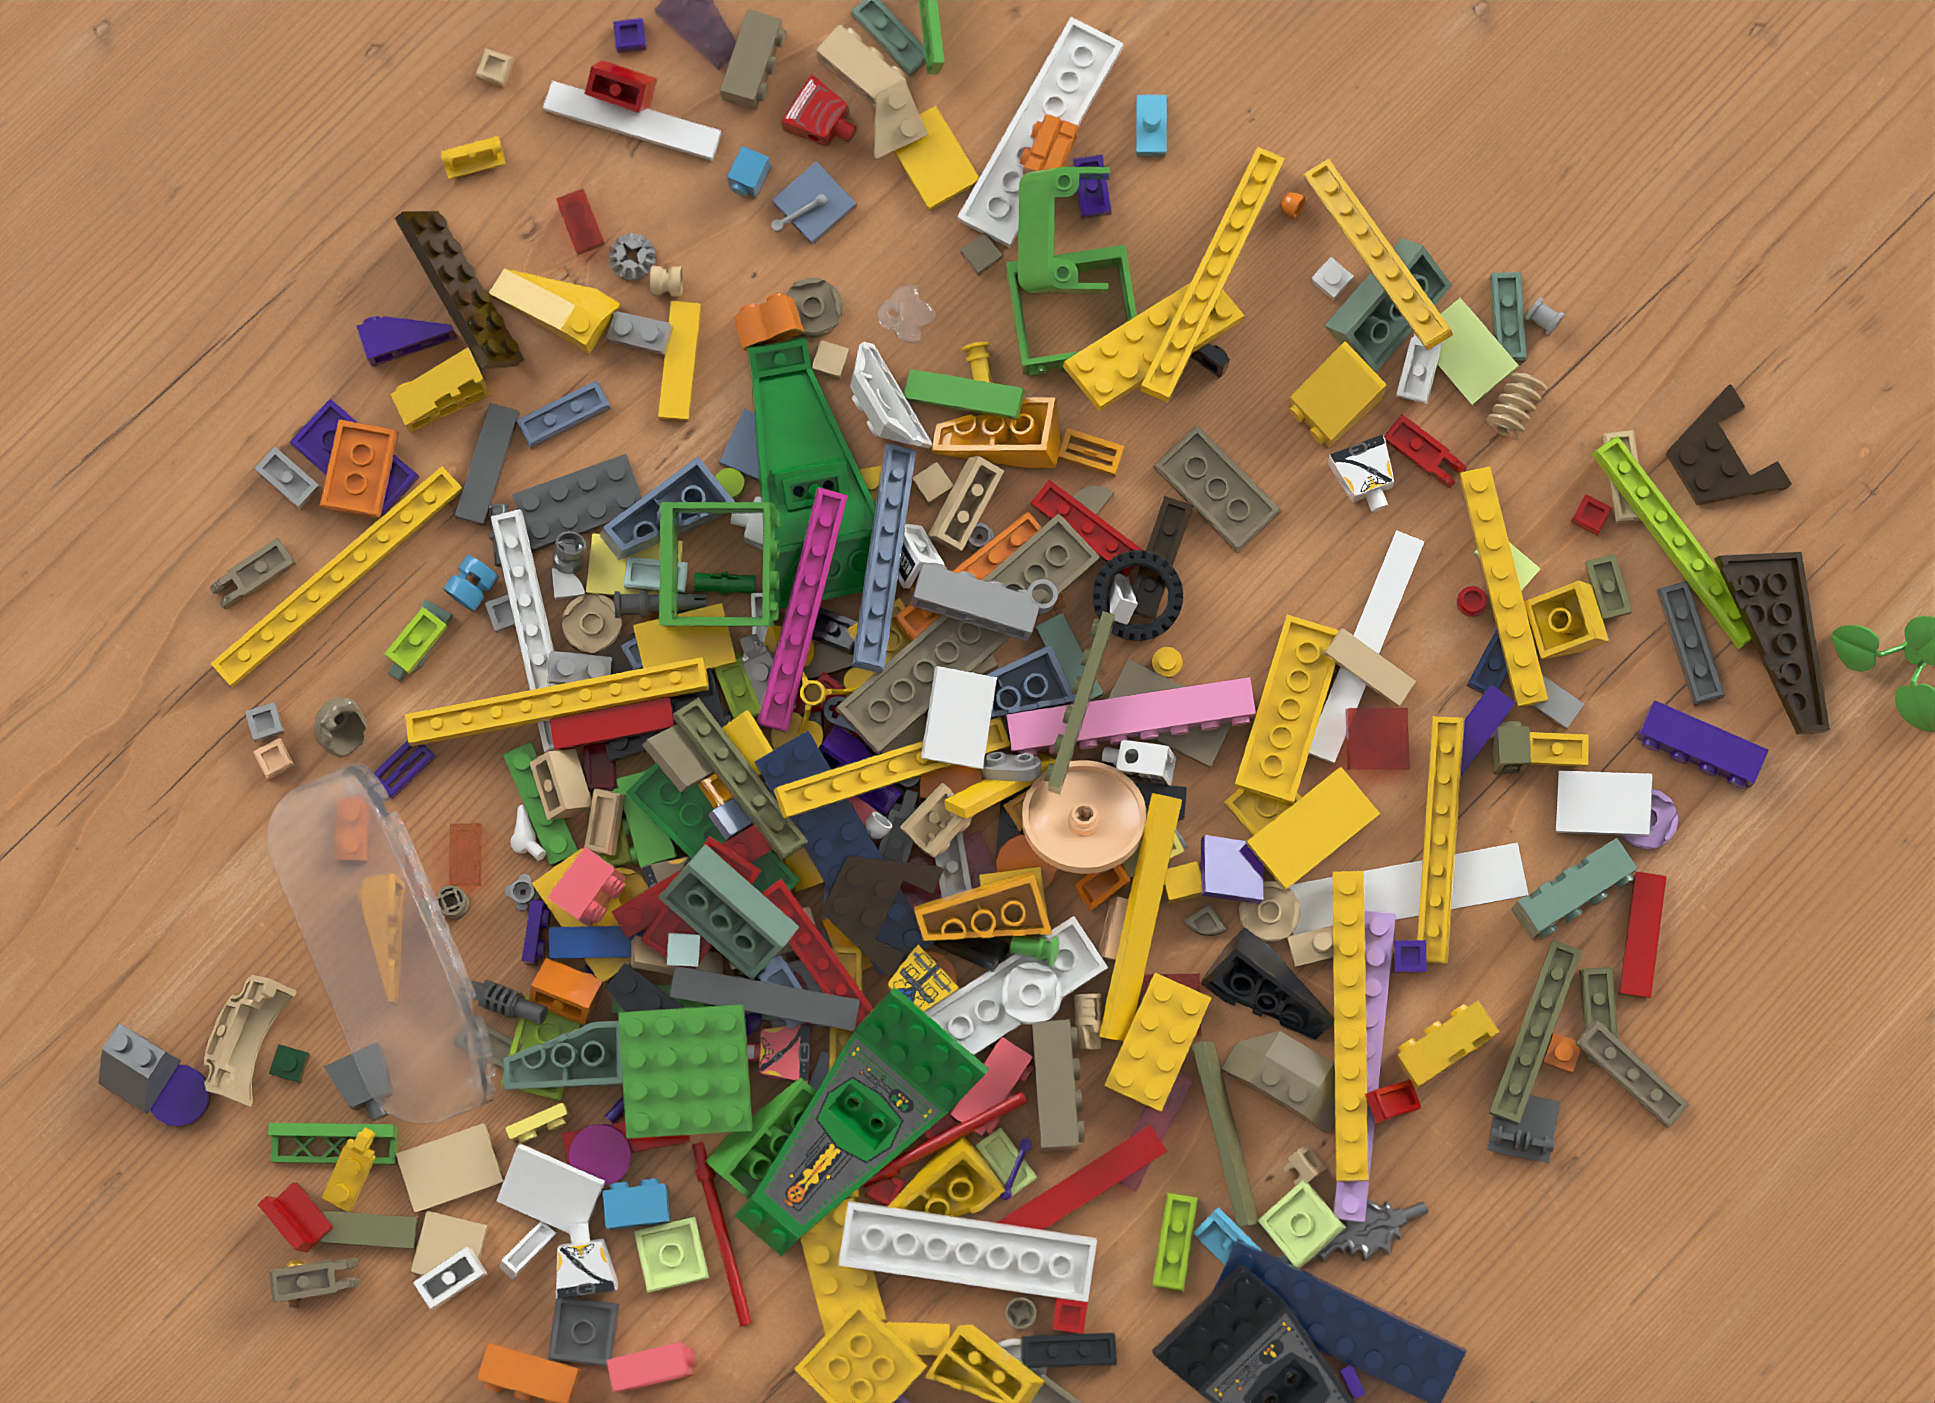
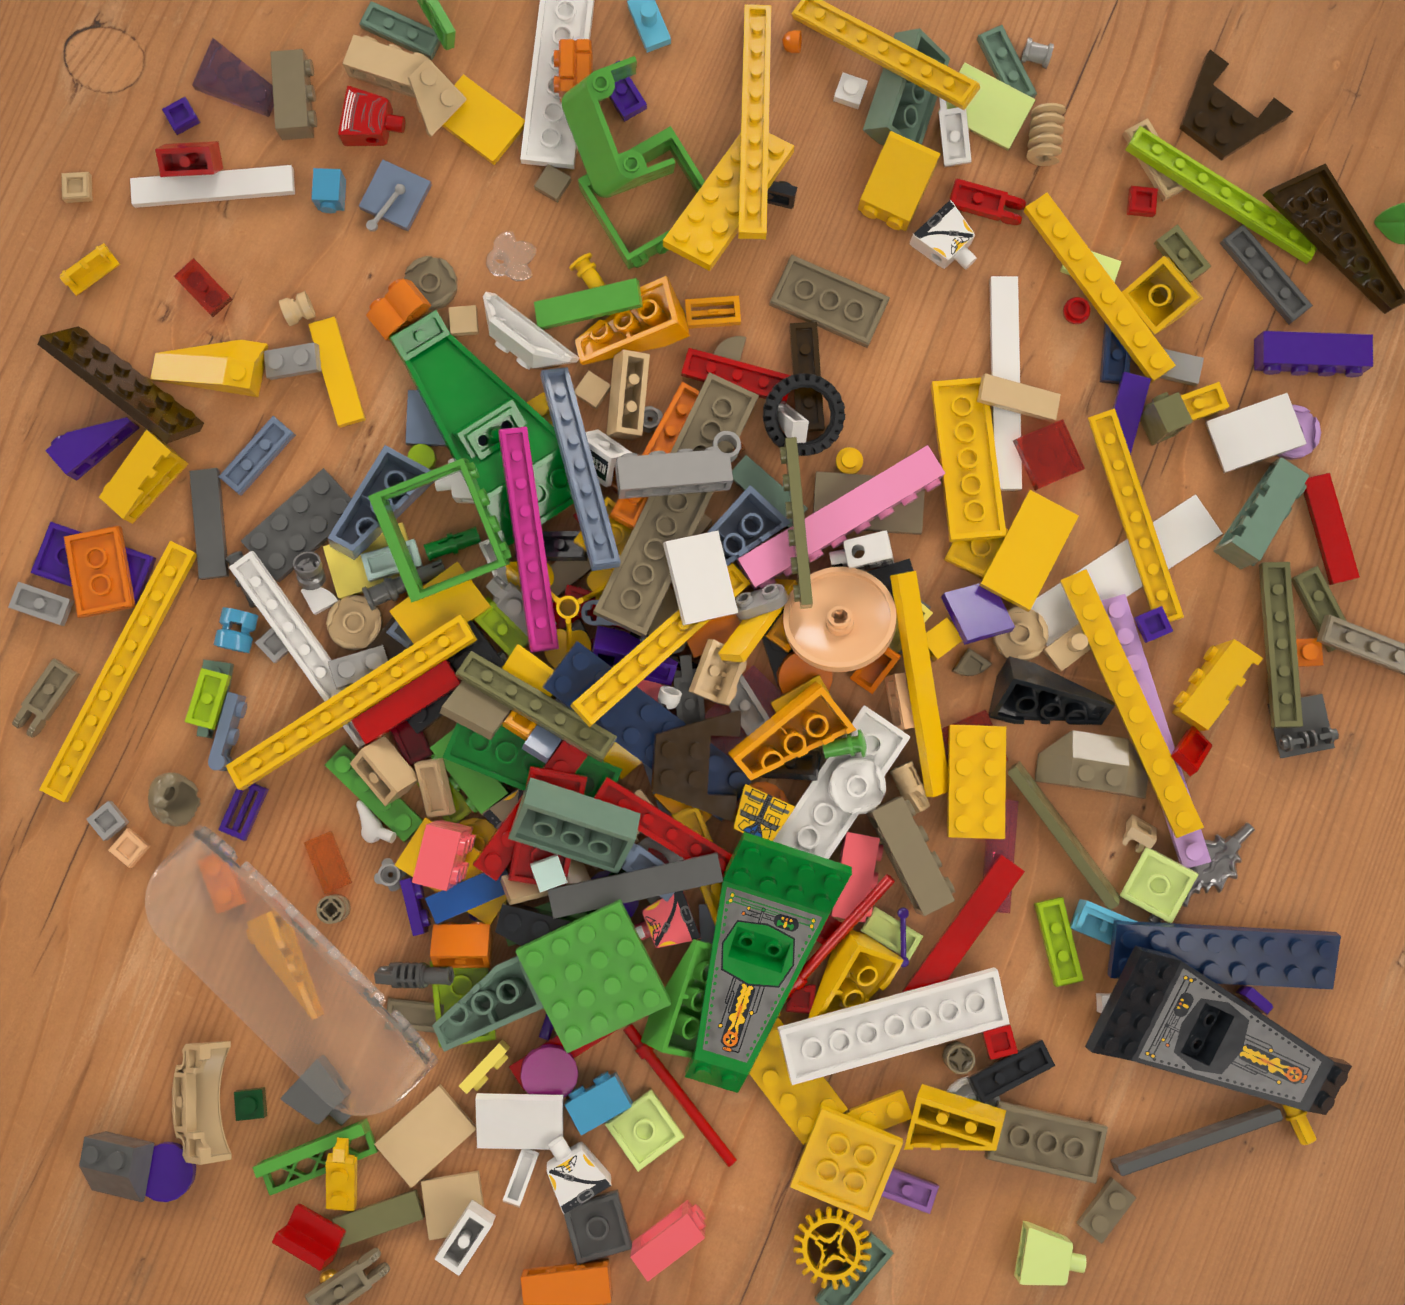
camera: 30 degrees left, 5 degrees up
(420, 681) = (227, 731): none -> sand blue plate
(628, 269) = (260, 312): light grey gear -> none

